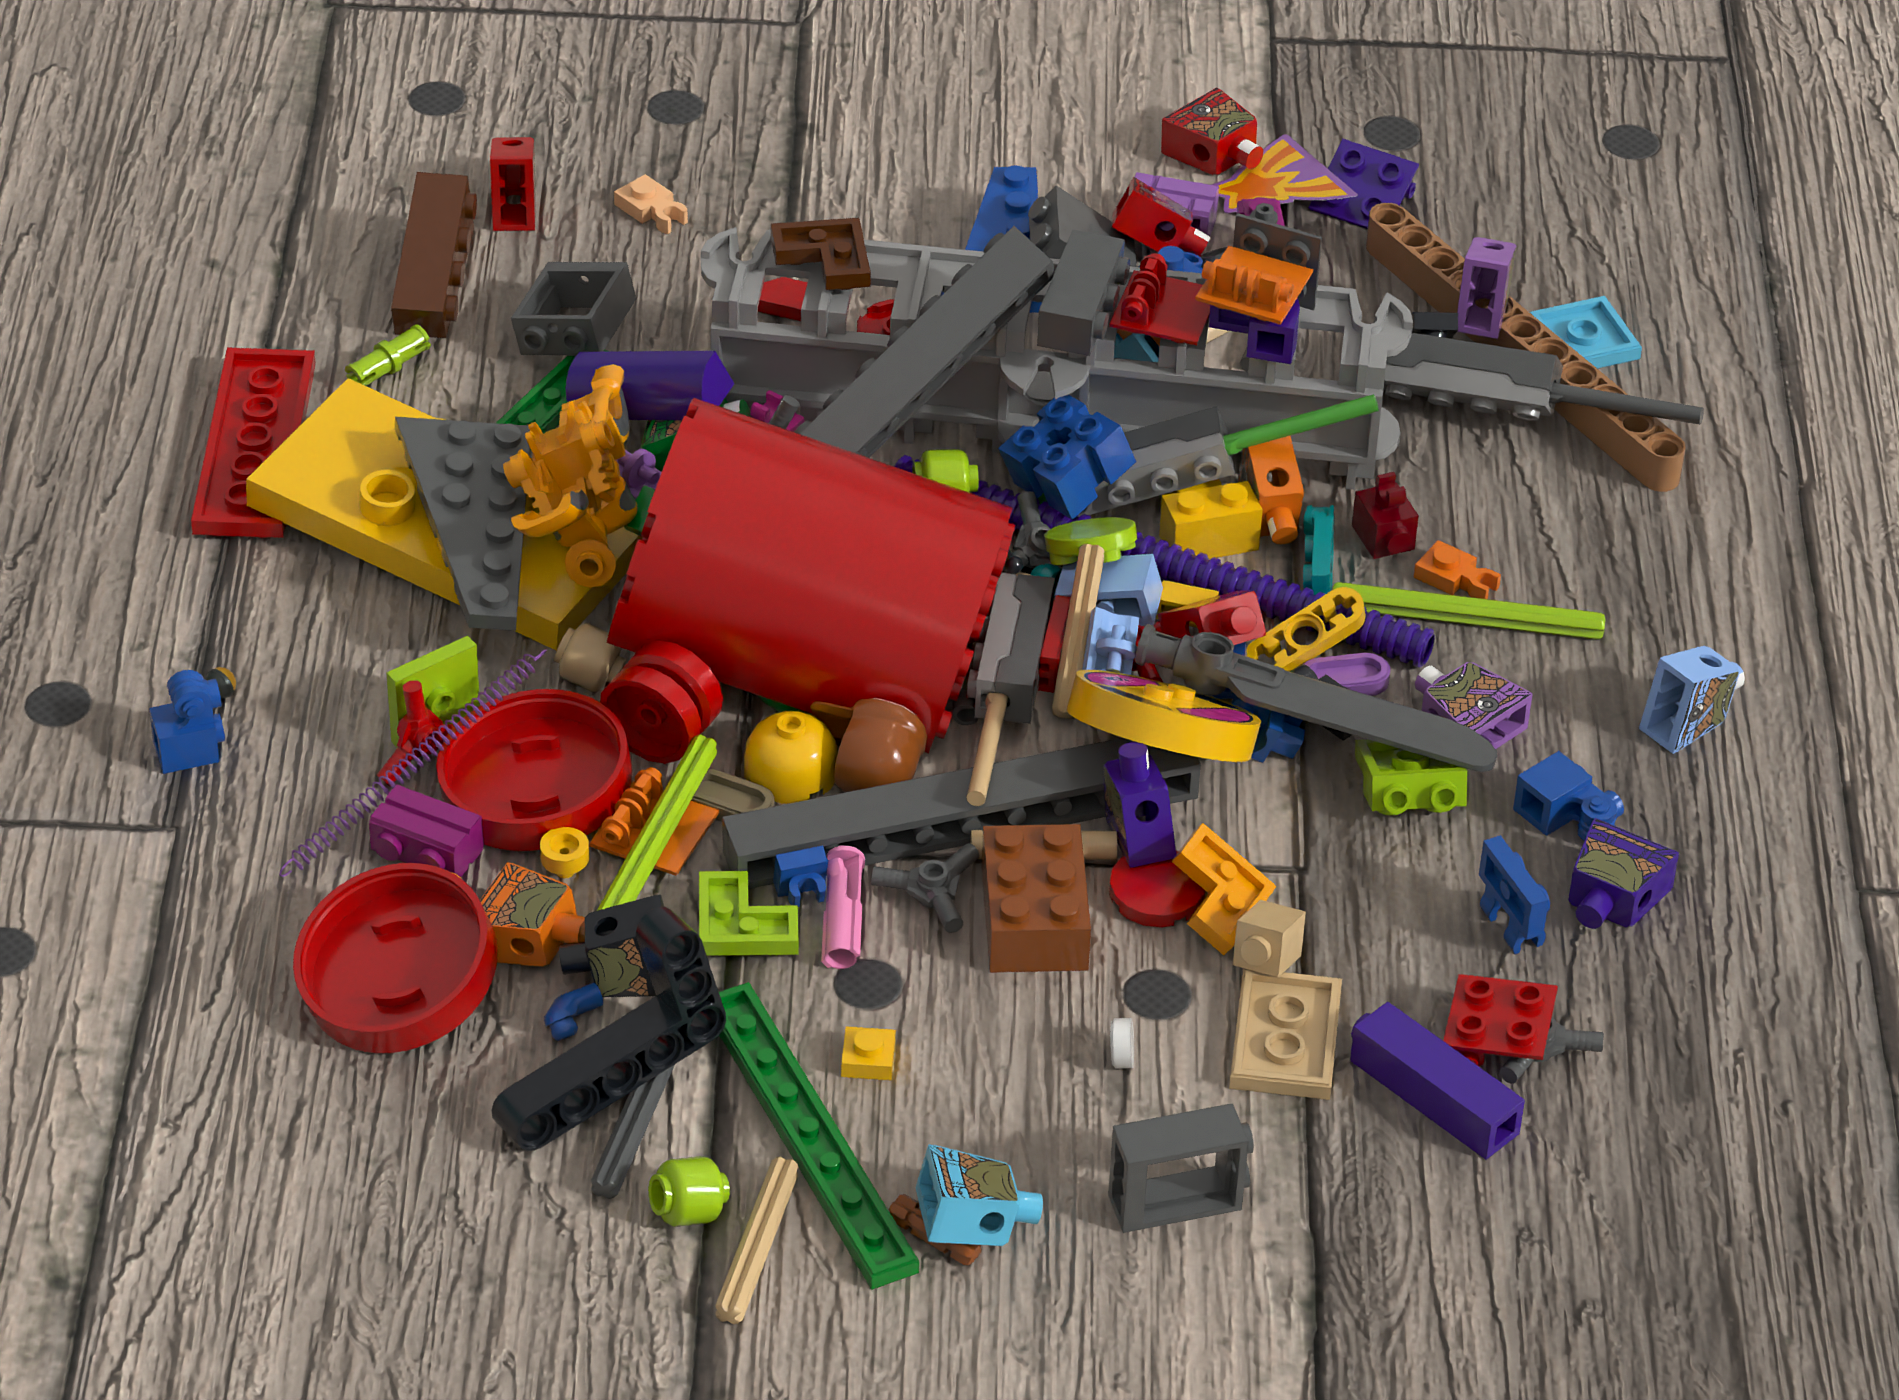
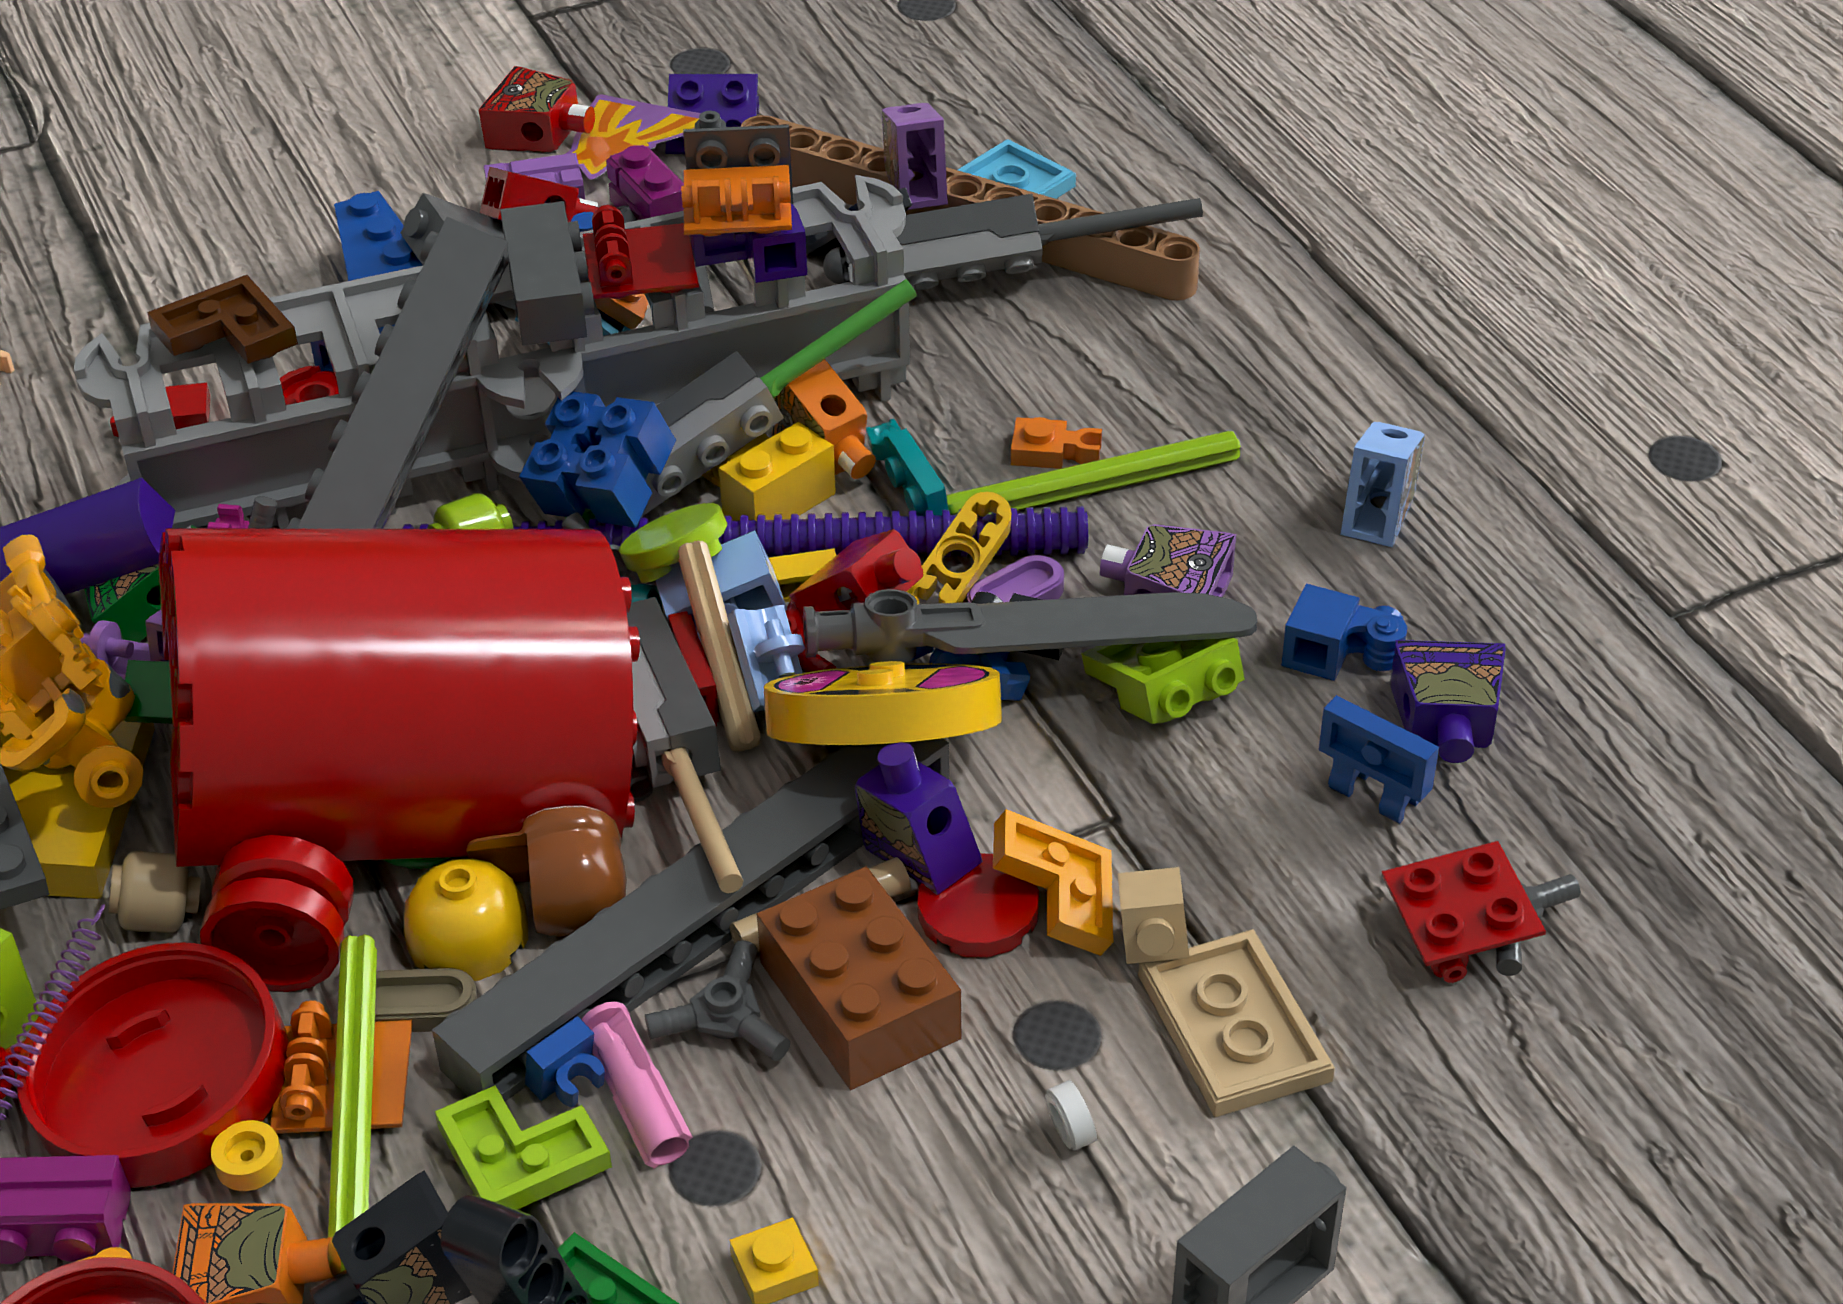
camera: 25 degrees left, 0 degrees up
(1385, 518) = (952, 412): dark red brick -> none
(1436, 1080) = (1441, 1006): dark purple brick -> none

